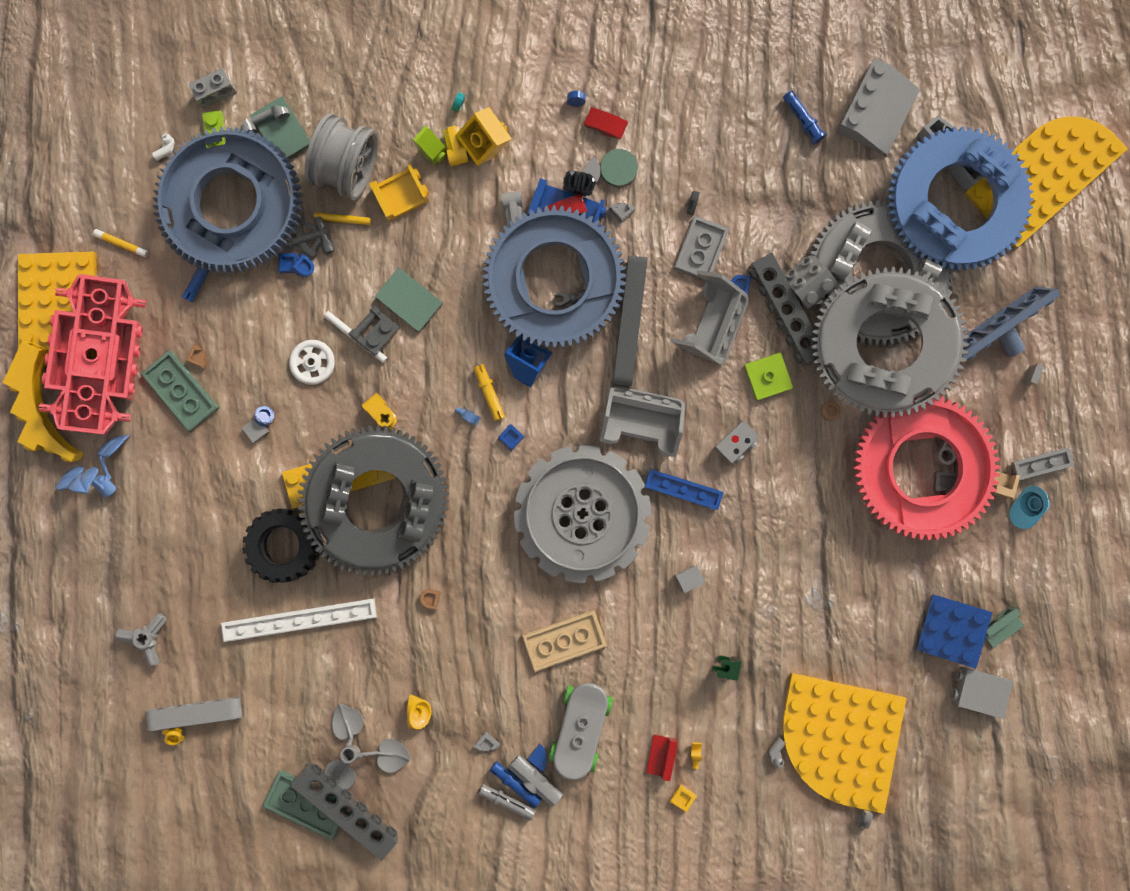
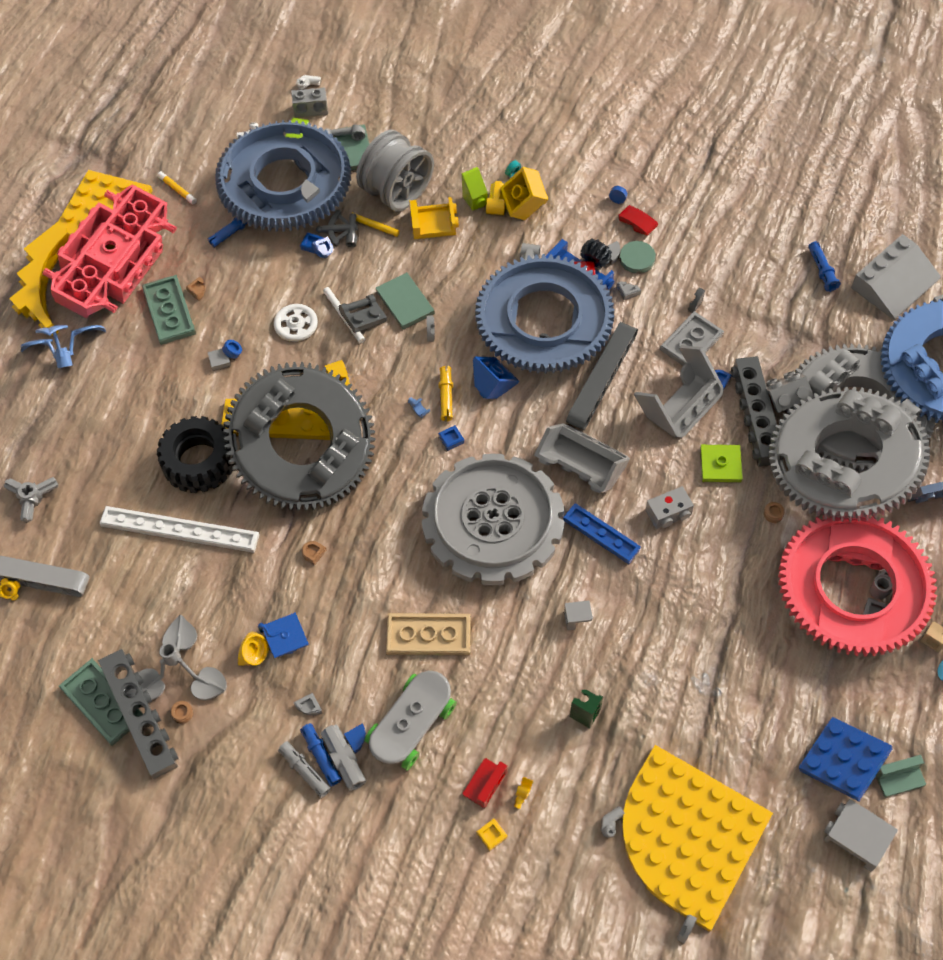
camera: 20 degrees right, 25 degrees down
(196, 57) = (307, 80): none -> white arm
(265, 218) = (309, 191): none -> light grey tile
(380, 788) = (181, 712): none -> medium nougat tile
(439, 691) = (284, 635): none -> blue hat
(447, 325) = (430, 329): none -> light grey tile

